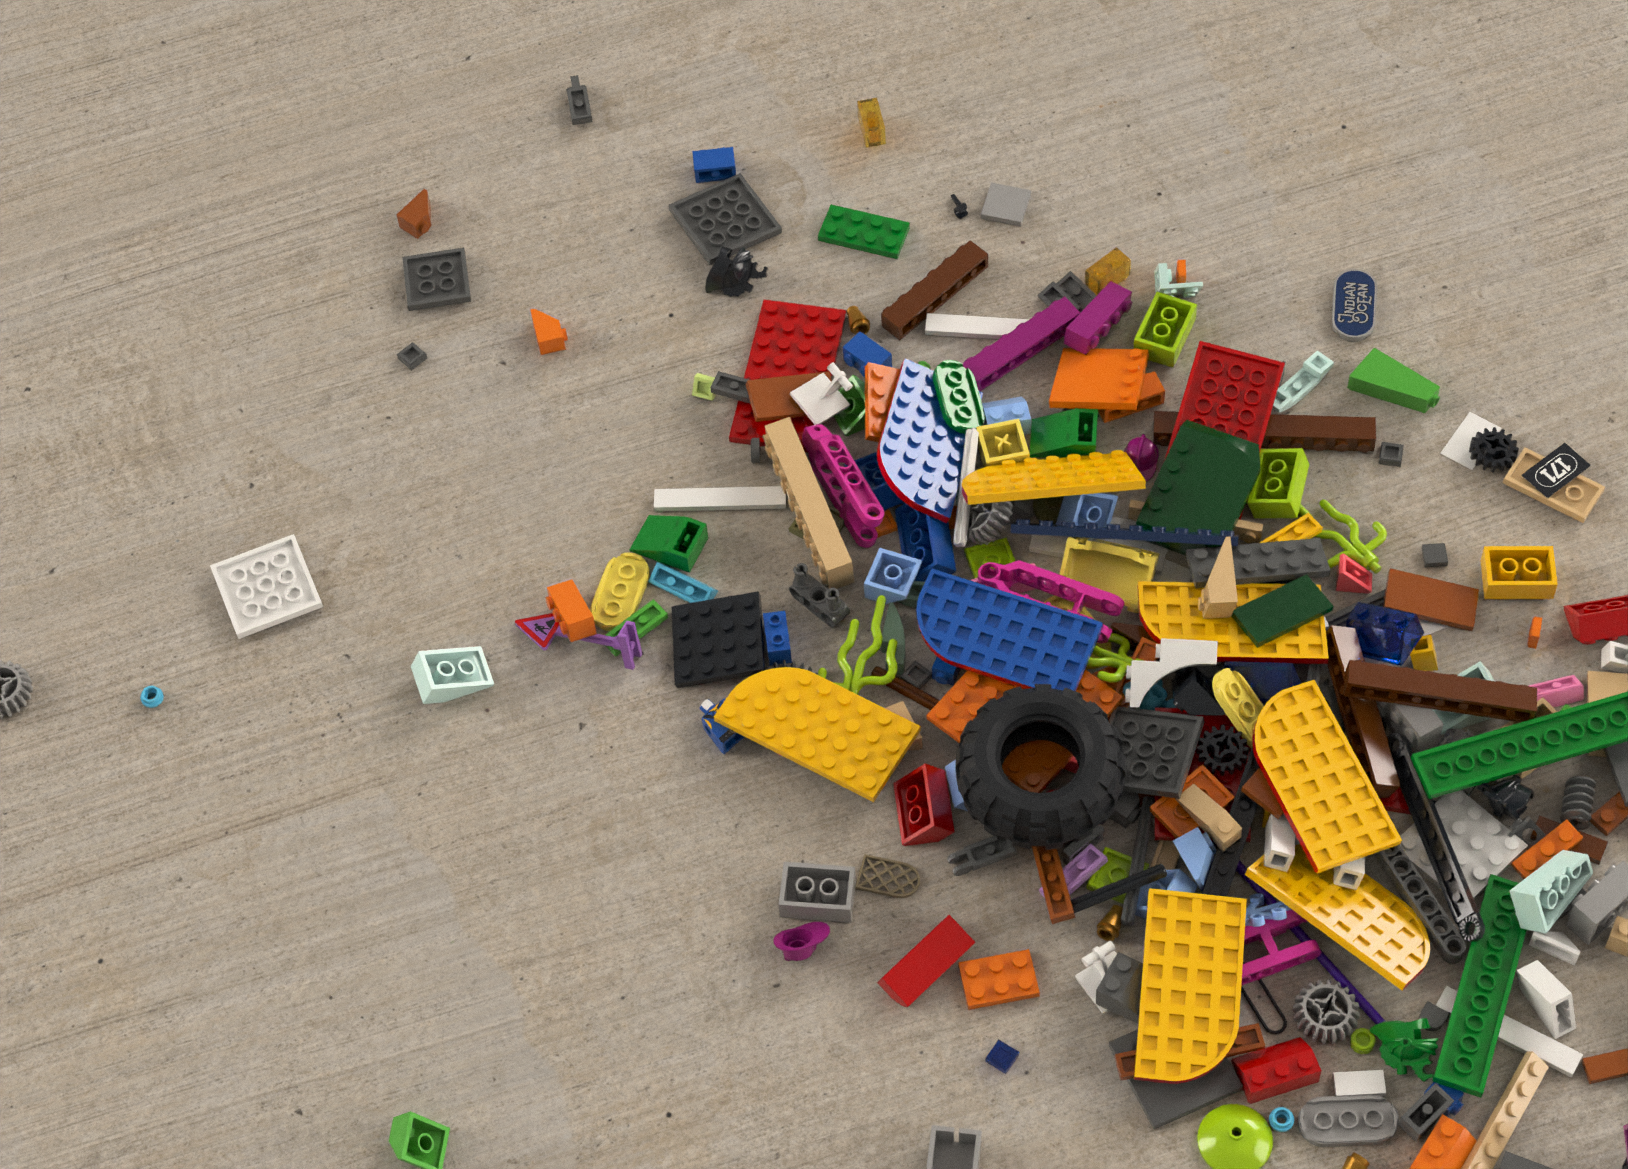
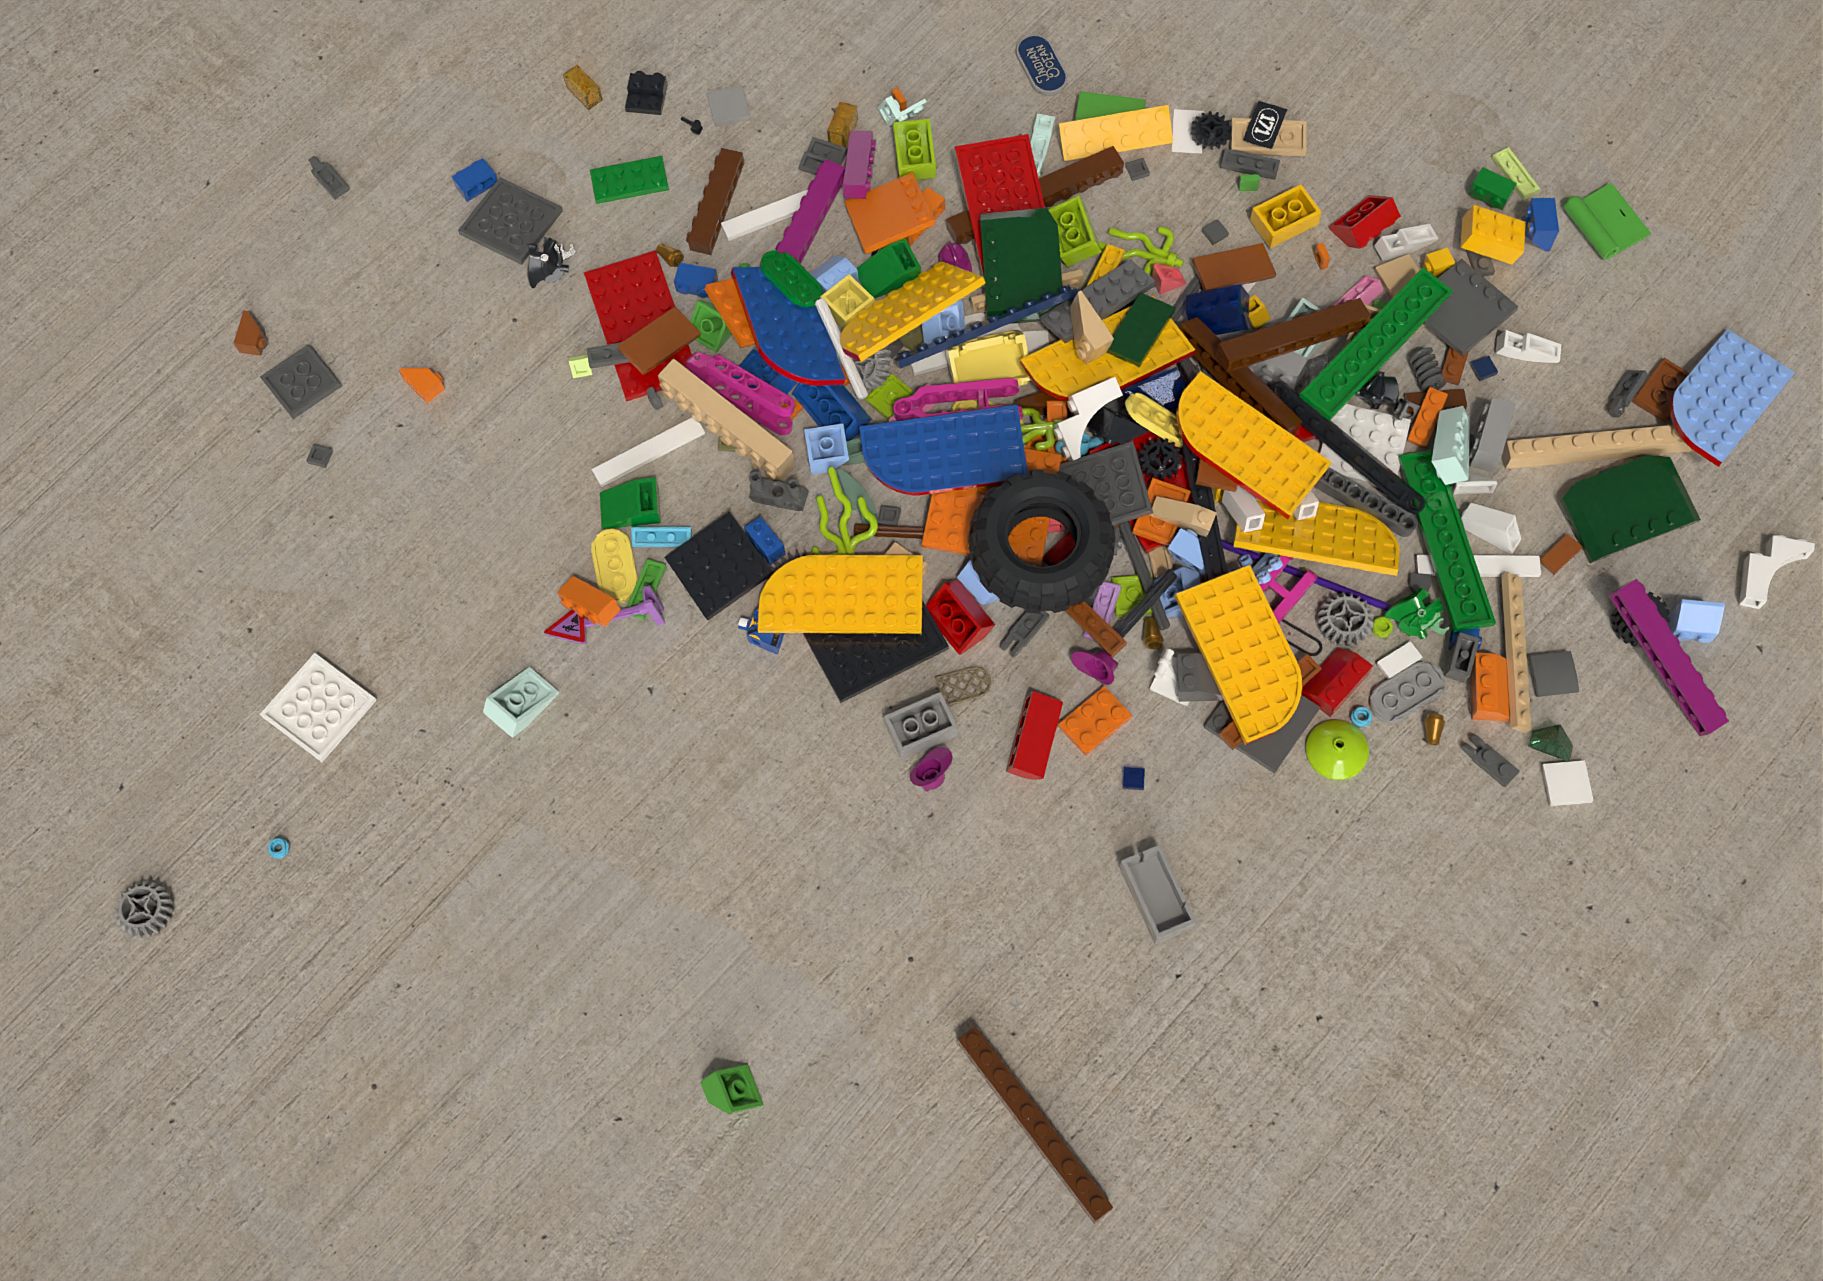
camera: 30 degrees left, 10 degrees up
(805, 802) = (866, 659): none -> black plate
(821, 397) = (684, 331): white plate -> none
(931, 156) = (646, 93): none -> black plate
(944, 672) = (909, 503): blue brick -> none
(1033, 924) = (1097, 665): none -> magenta piece
(1392, 405) = (1122, 130): none -> yellow plate
(1501, 521) = (1249, 182): none -> bright green tile
(1516, 503) = (1250, 163): none -> dark grey plate

